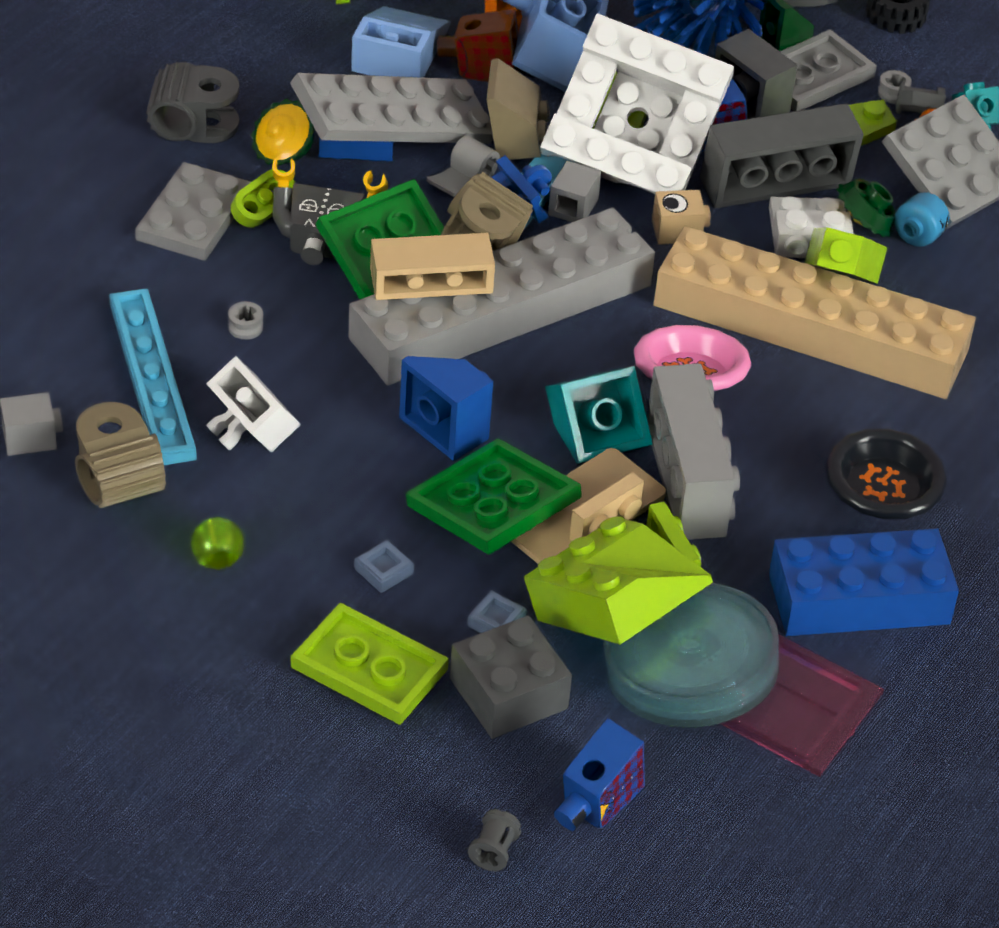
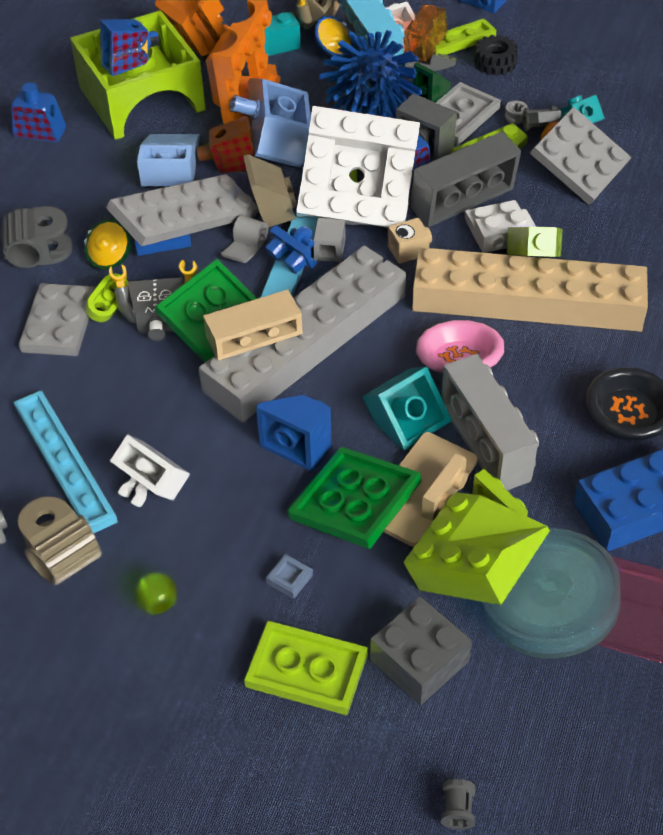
camera: 10 degrees left, 5 degrees up
(245, 311) = (122, 389): light grey bush -> none
(488, 208) = (277, 271): dark tan piece -> none
(494, 612) = (389, 597): sand blue tile -> none
(602, 777) = (524, 726): blue torso -> none
(868, 205) = (536, 200): dark green piece -> none
(924, 217) = (574, 202): dark azure head -> none

